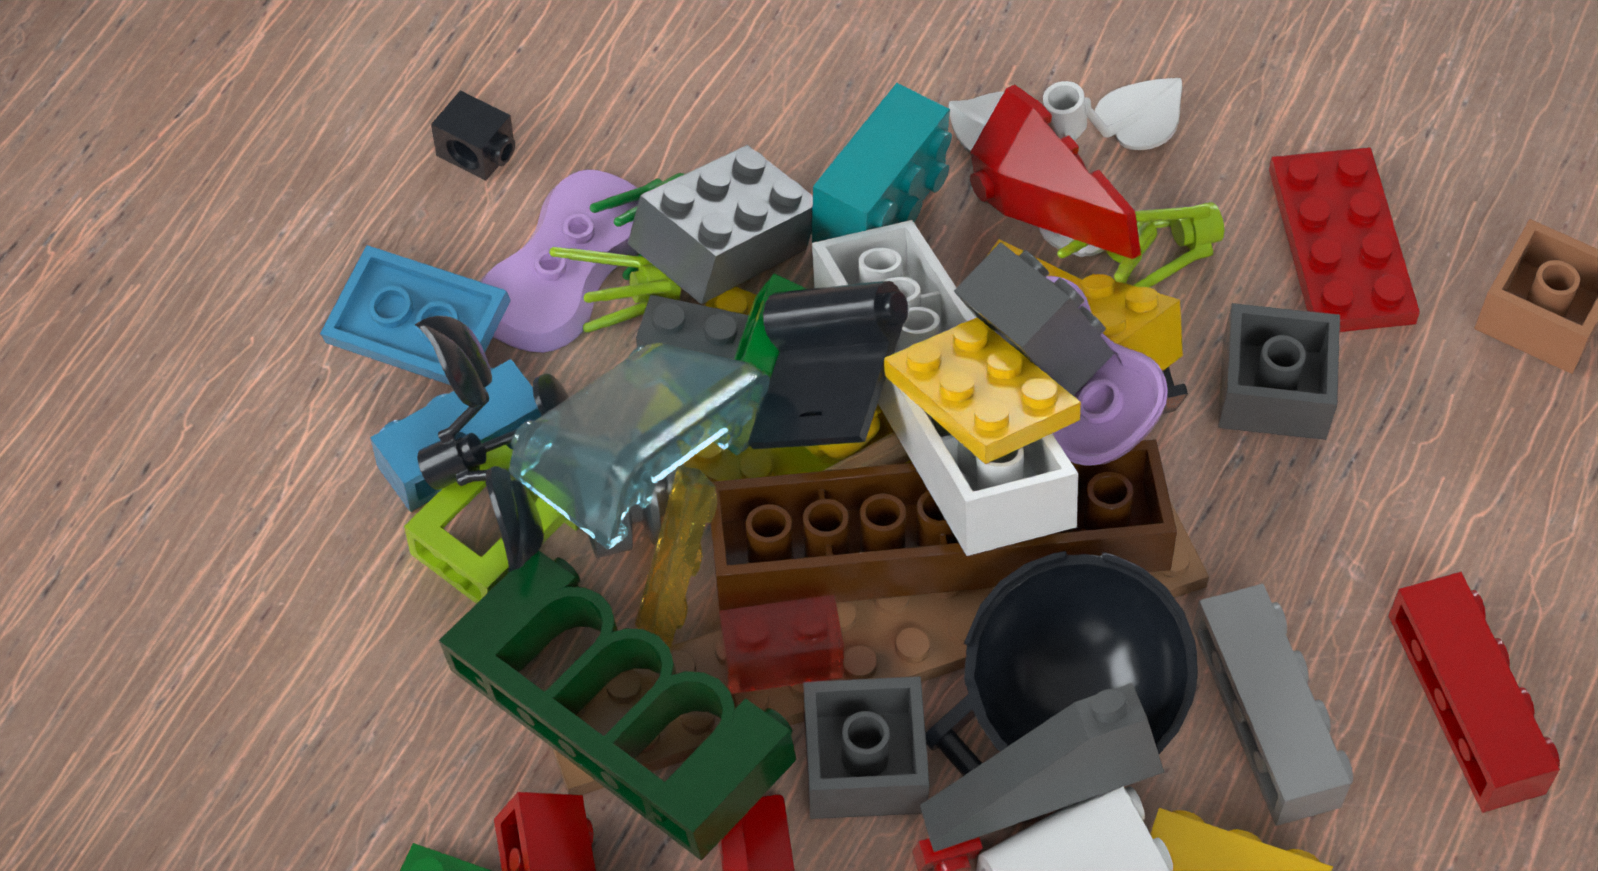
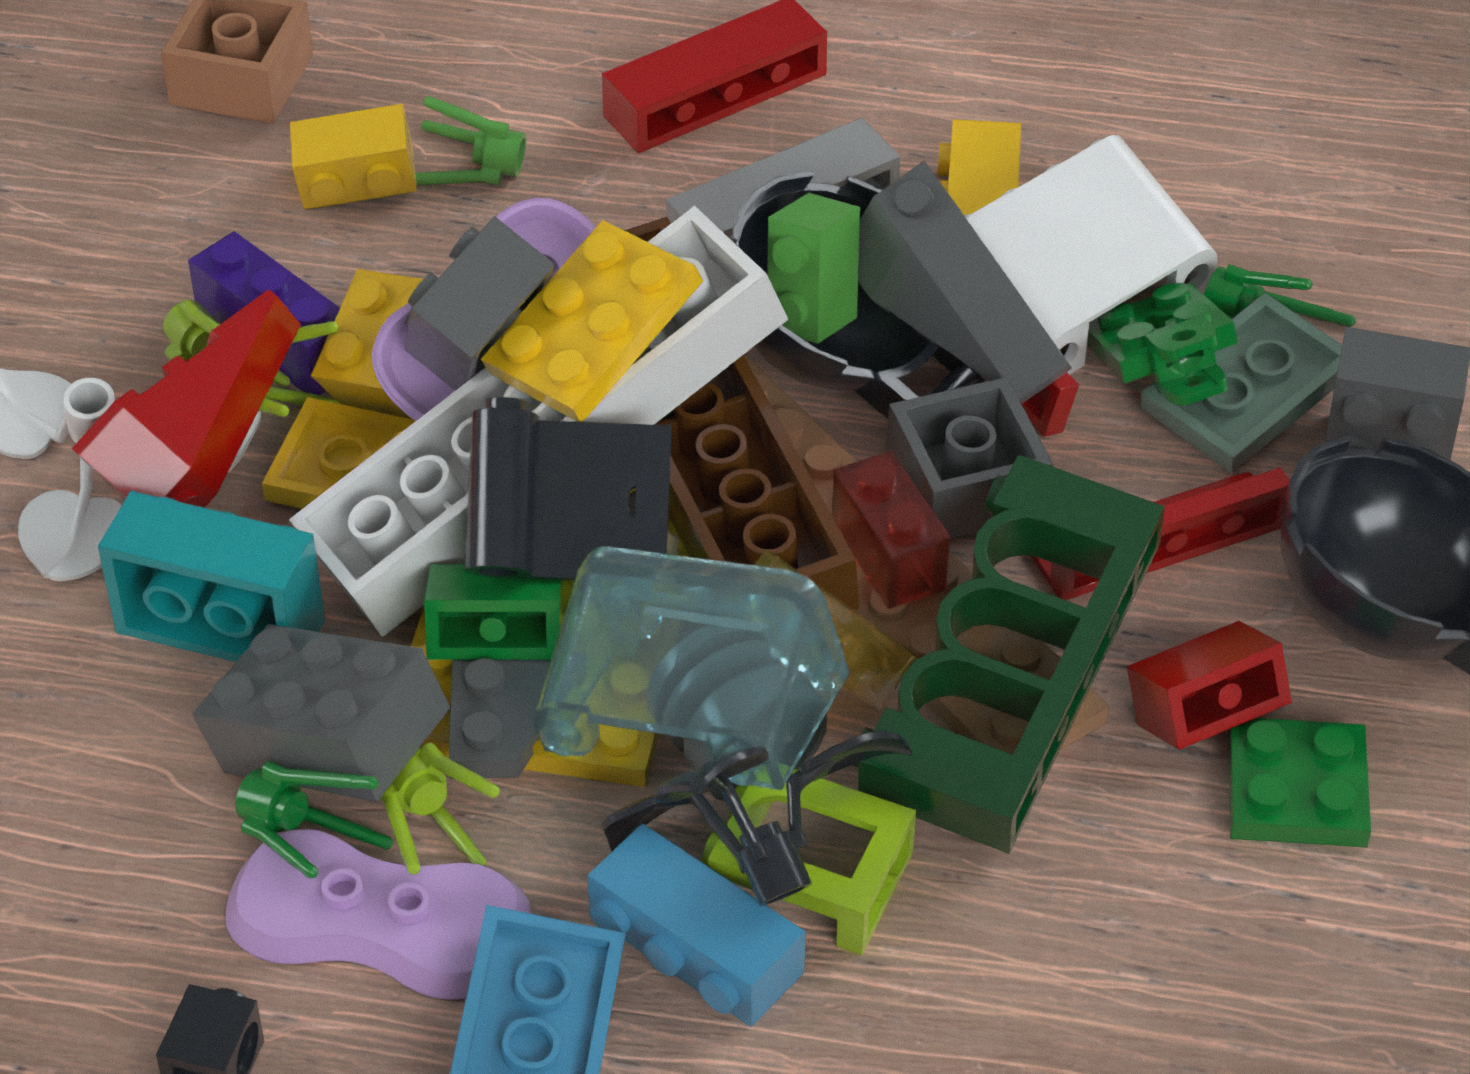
camera: 105 degrees left, 10 degrees down
(1102, 646) = (815, 264): none -> bright green brick
(1212, 265) = (236, 273): none -> dark purple brick
(1279, 371) = (391, 219): dark grey brick -> none
(1344, 238) = (155, 230): red plate -> none
(1393, 366) = (352, 156): none -> yellow brick
(1393, 486) = (495, 146): none -> bright green plant

